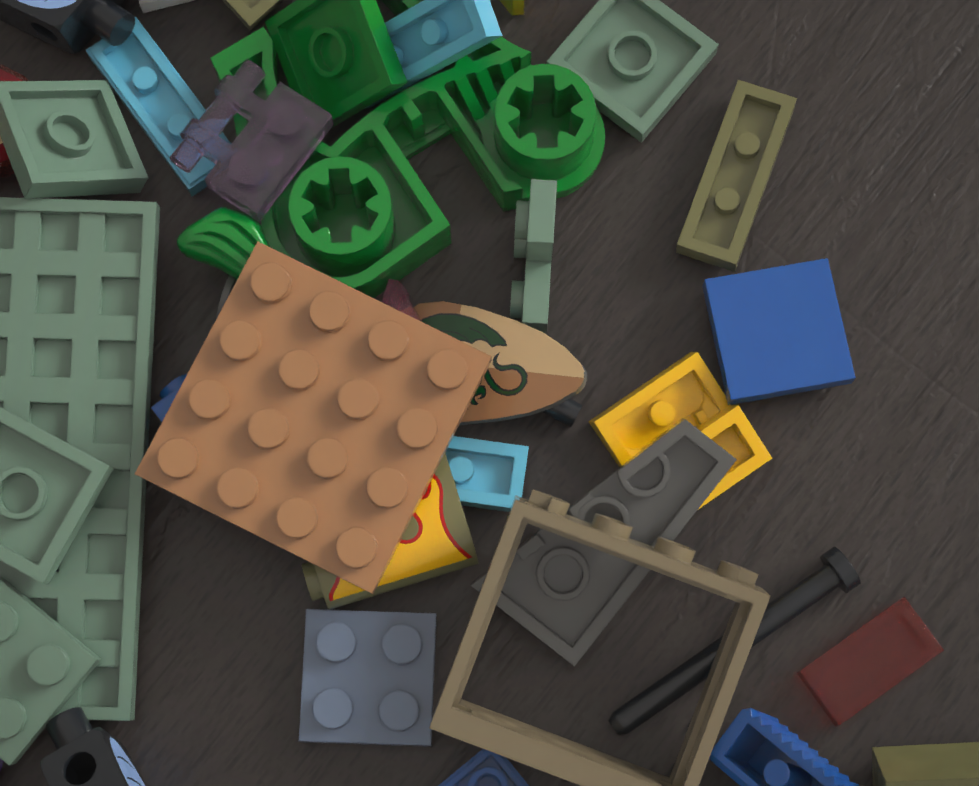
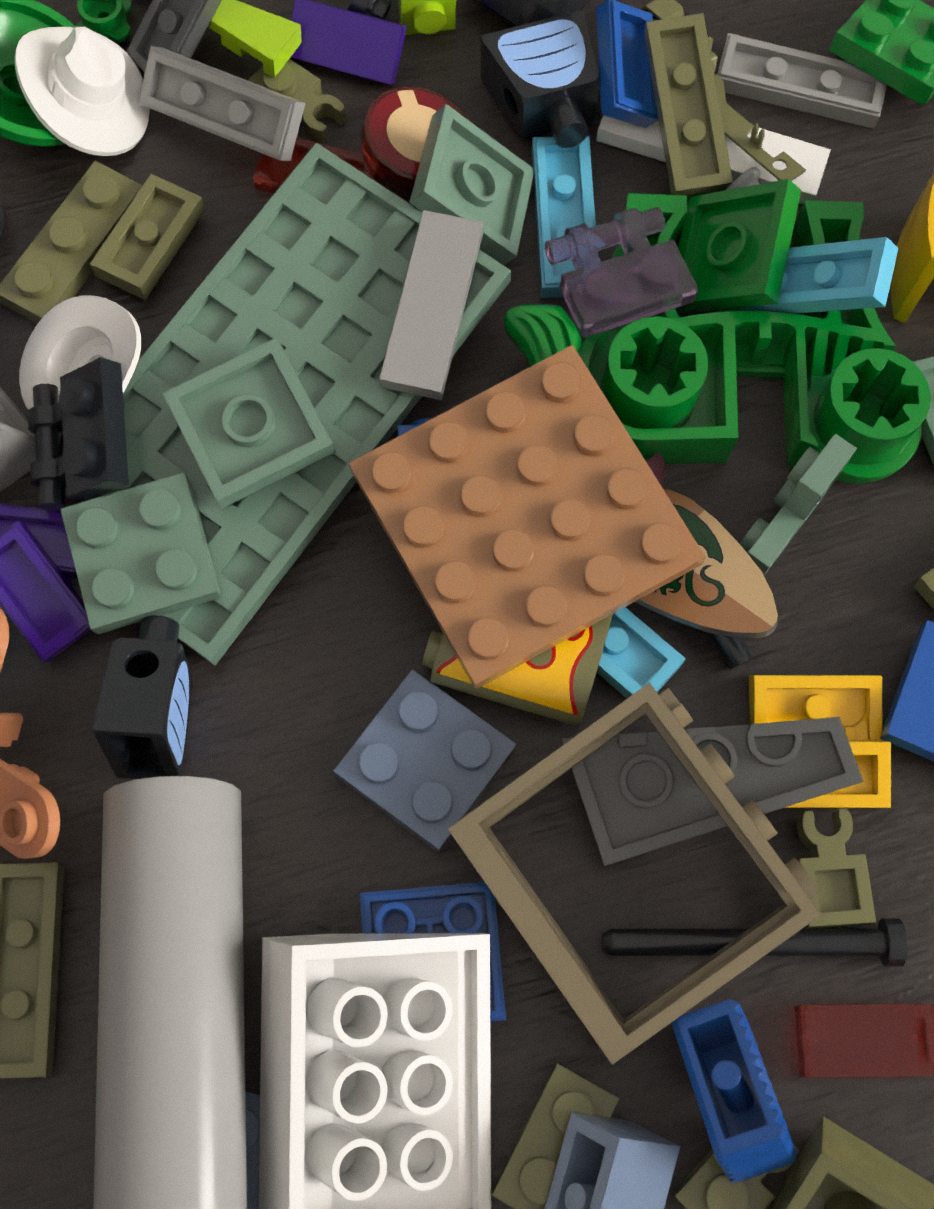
camera: 30 degrees right, 5 degrees down
(108, 280) = (431, 305): none -> light grey tile
(762, 548) = (841, 878): none -> olive plate

